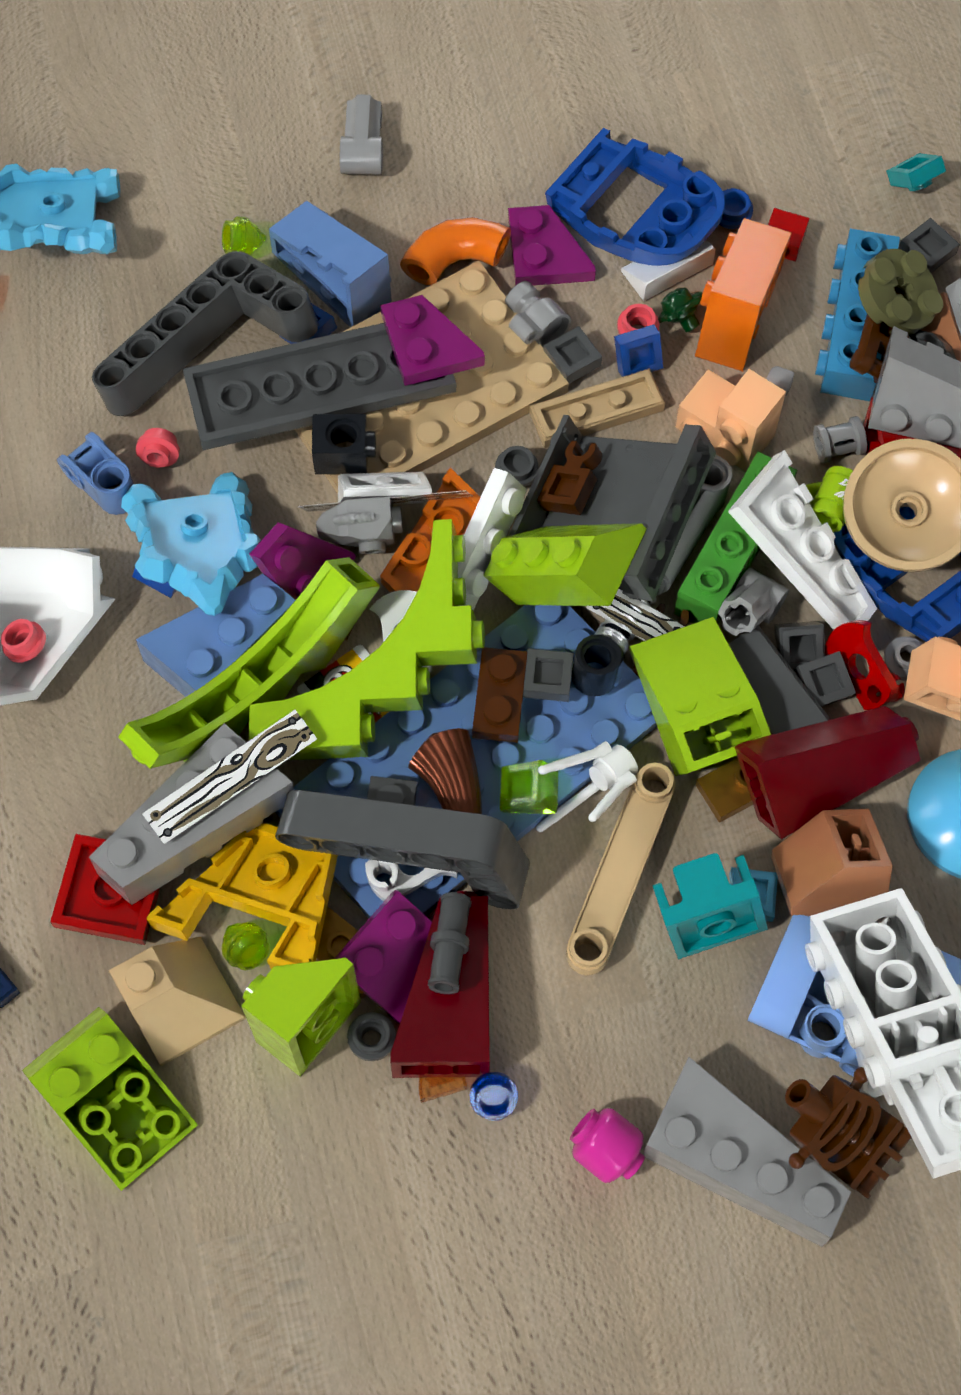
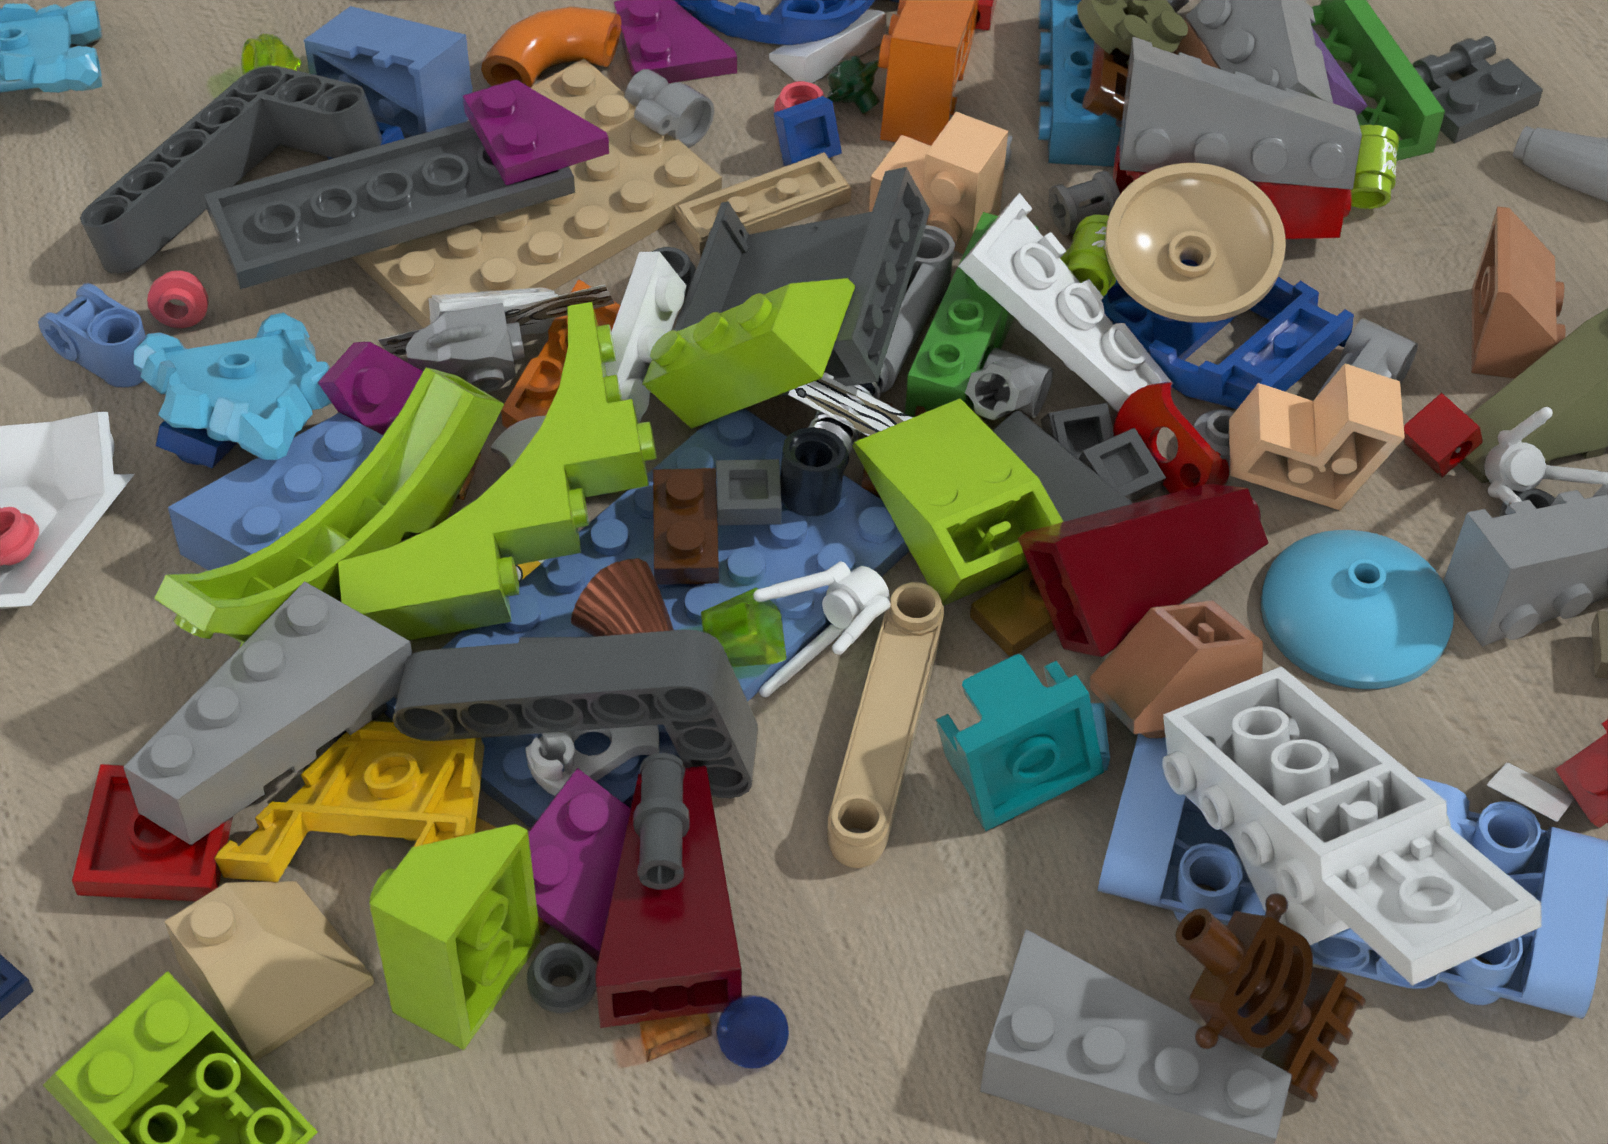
camera: 10 degrees left, 15 degrees down
(229, 776) = (317, 642): sticker -> none
(245, 945) = (355, 876): clear neon green plate -> none
(336, 428) = (429, 257): black brick -> none
(571, 485) = (743, 274): reddish brown plate -> none
(573, 354) = (723, 145): dark grey plate -> none
(607, 1145) = (929, 1072): dark pink head -> none

